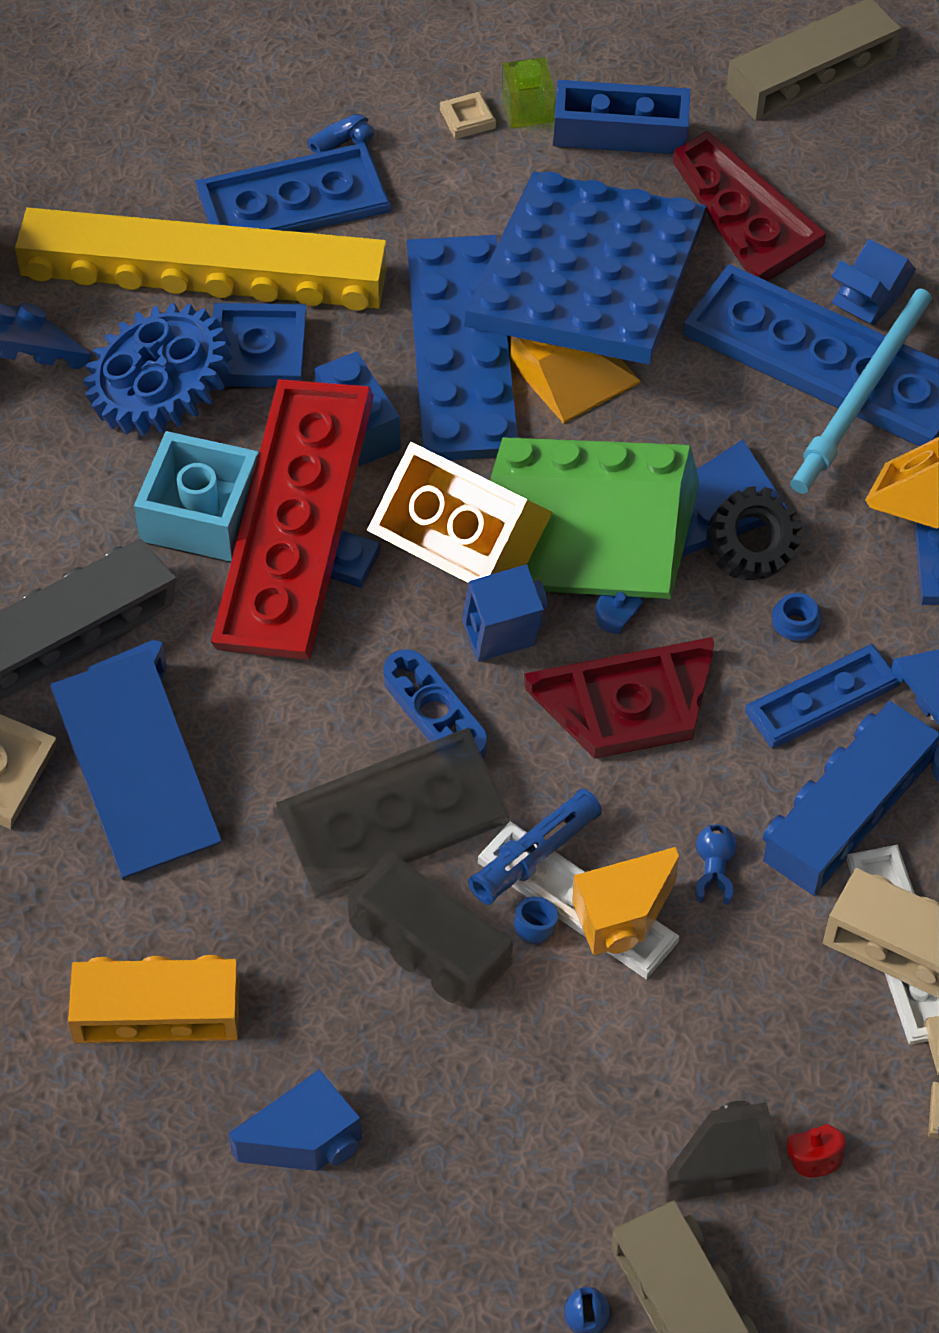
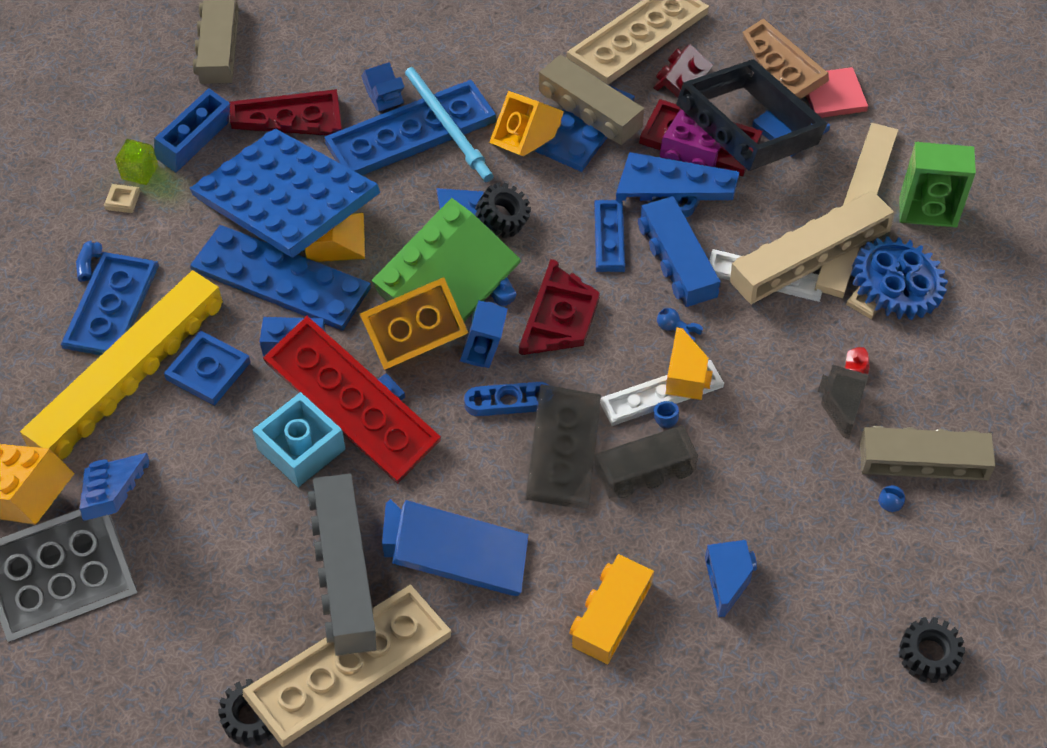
camera: 60 degrees left, 0 degrees up
(158, 369) = (166, 430): blue gear -> none
(494, 879) = (631, 399): blue pin -> none
(800, 605) = (561, 215): blue plate -> none

